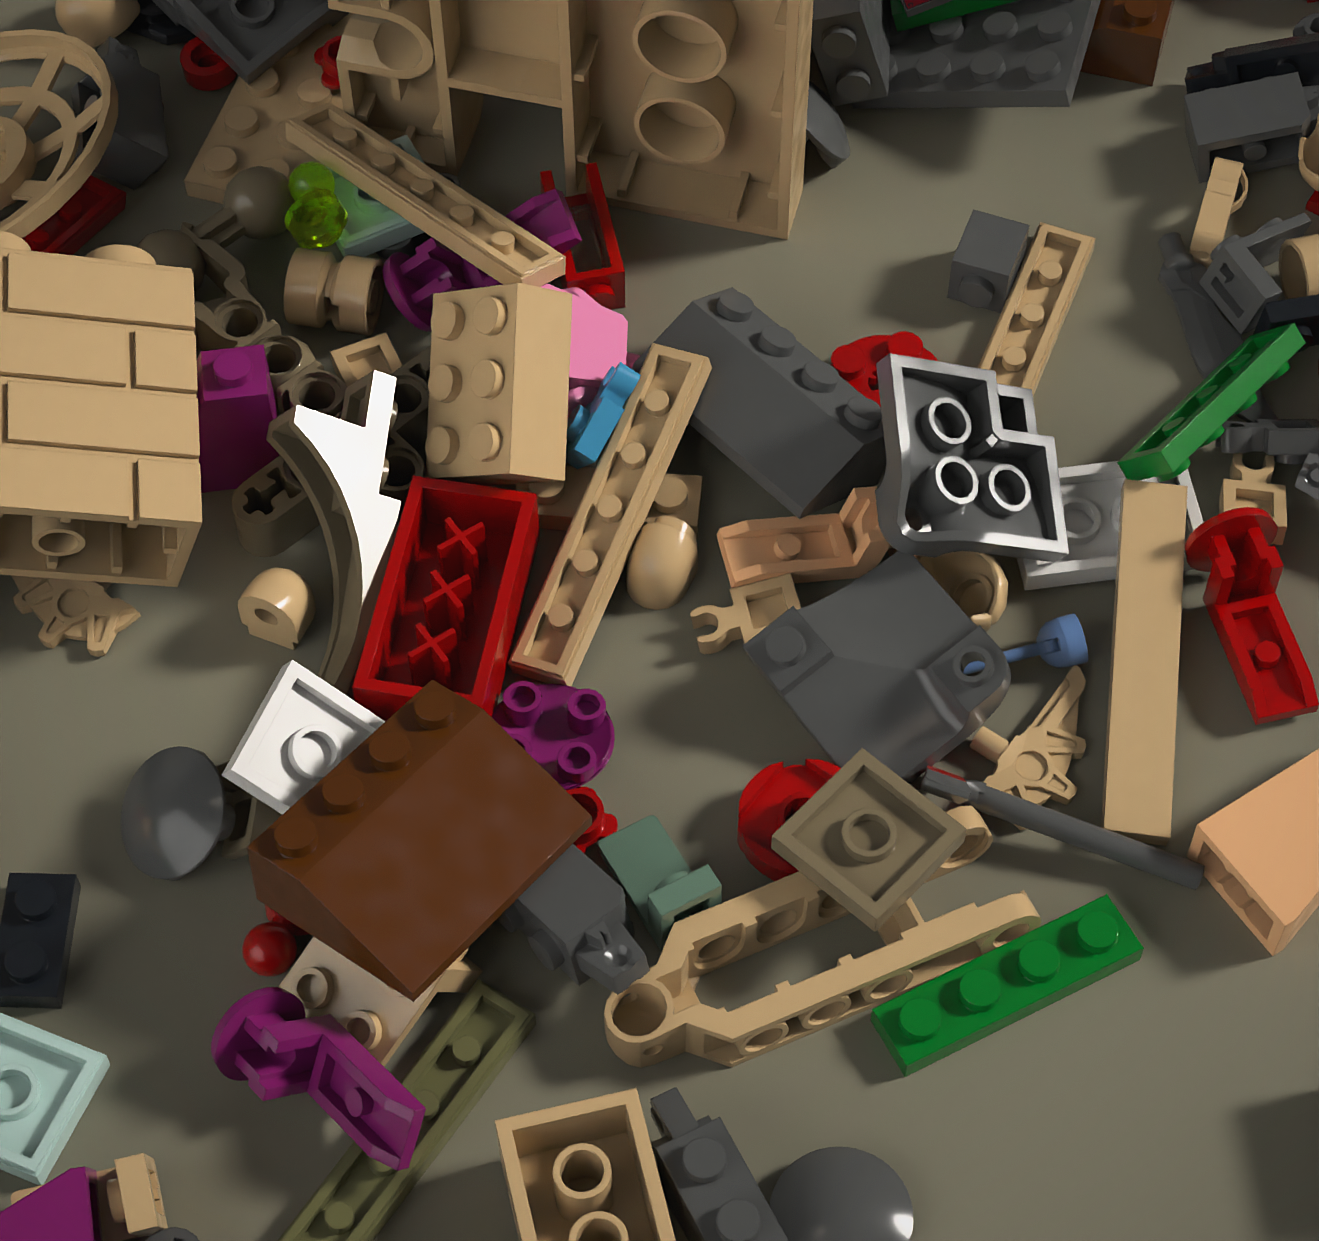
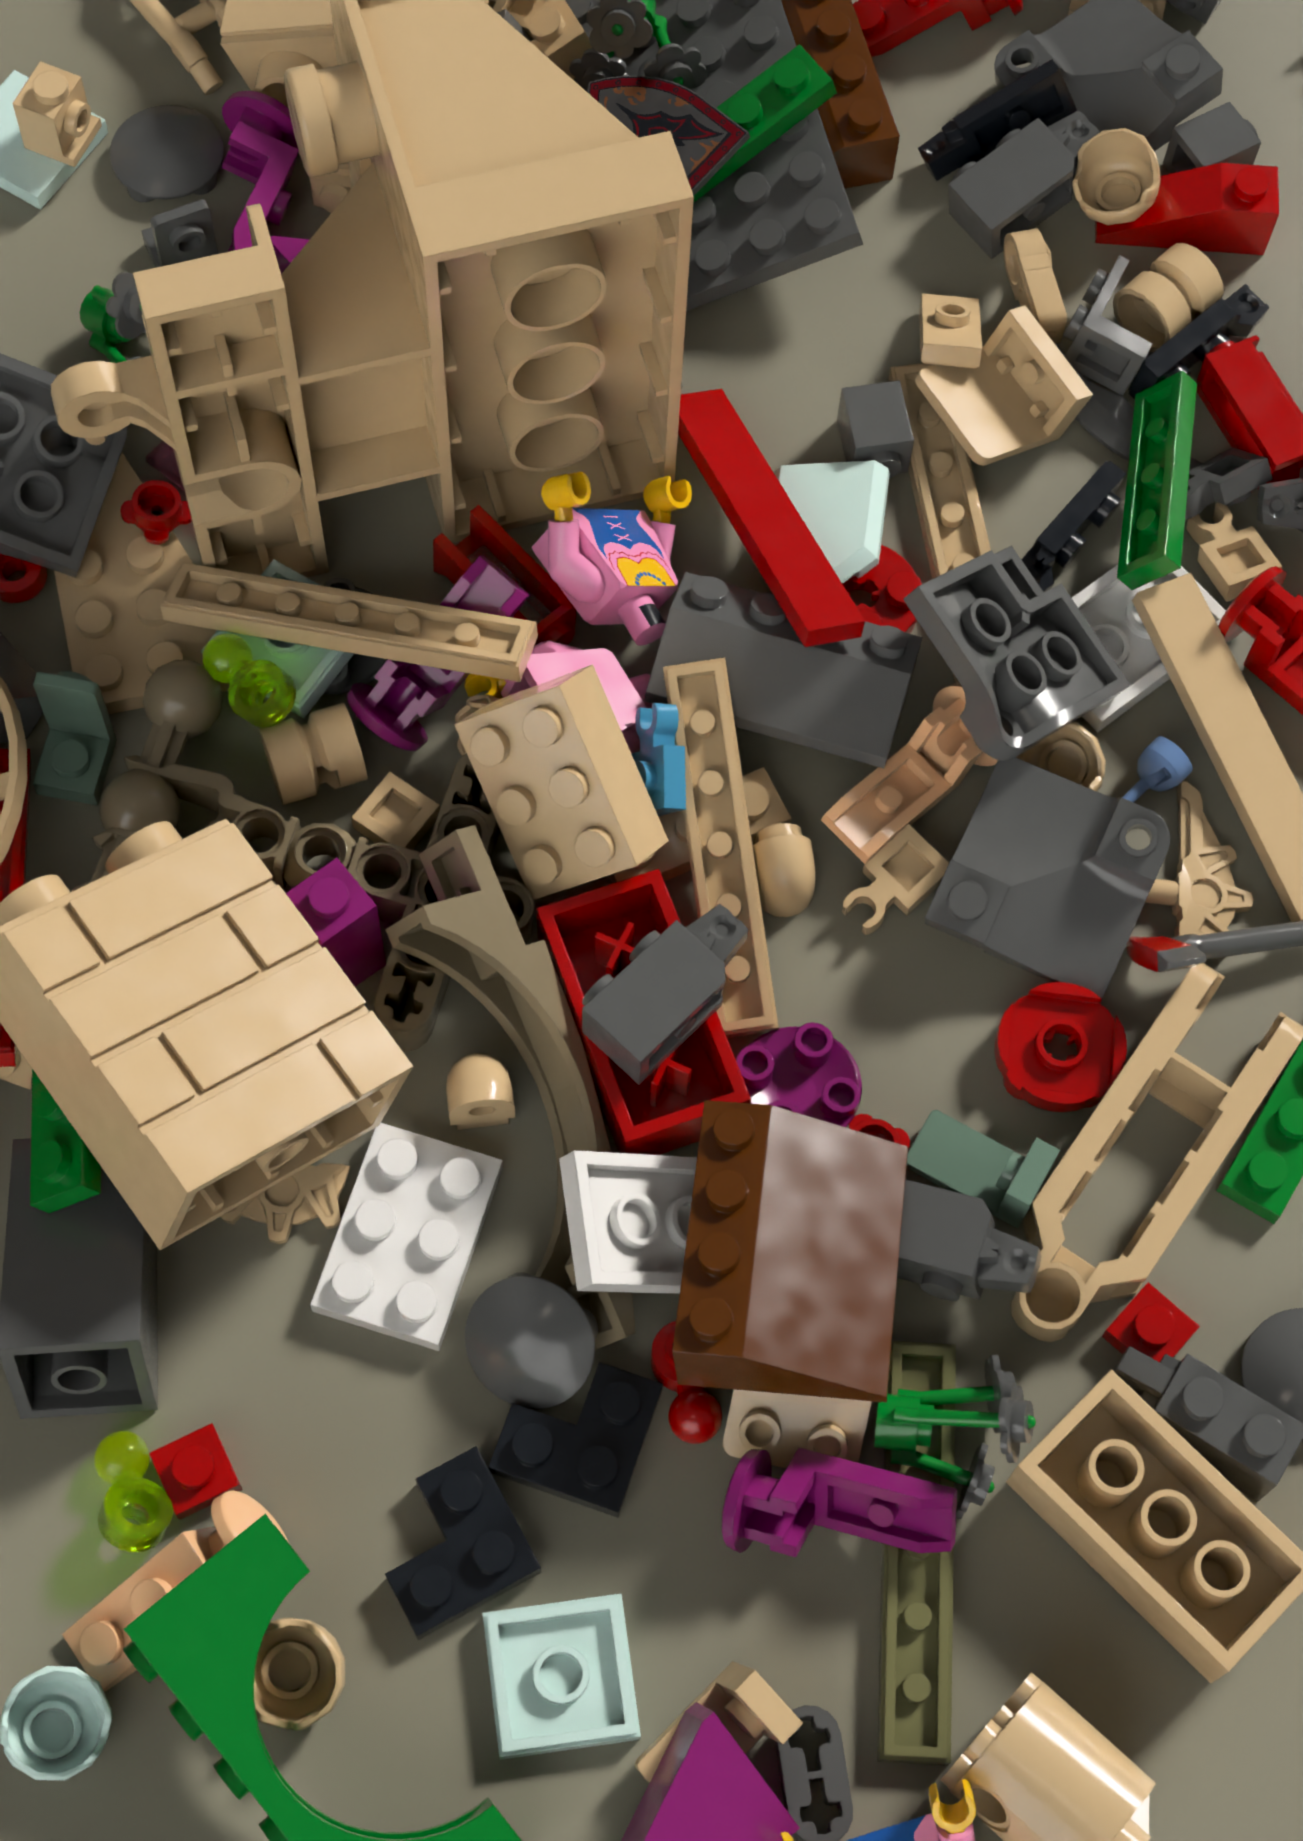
camera: 35 degrees left, 10 degrees up
(146, 689) = (407, 1236): none -> white plate
(165, 939) = (585, 1460): none -> black plate
(170, 195) = (77, 740): none -> sand green bracket
(462, 580) = (663, 992): none -> dark grey hinge
(509, 1072) = (909, 1419): none -> green plant
(673, 249) = (613, 560): none -> torso
(724, 1092) = (1151, 1326): none -> red plate
(829, 278) = (767, 521): none -> red tile
(868, 839) = (1150, 1041): dark tan plate -> none
(888, 311) = (842, 510): none -> light aqua tile
(1105, 412) = (1063, 537): none -> black hinge
(1108, 211) = (950, 331): none -> tan plate
(1121, 284) = (1014, 399): none -> tan bracket

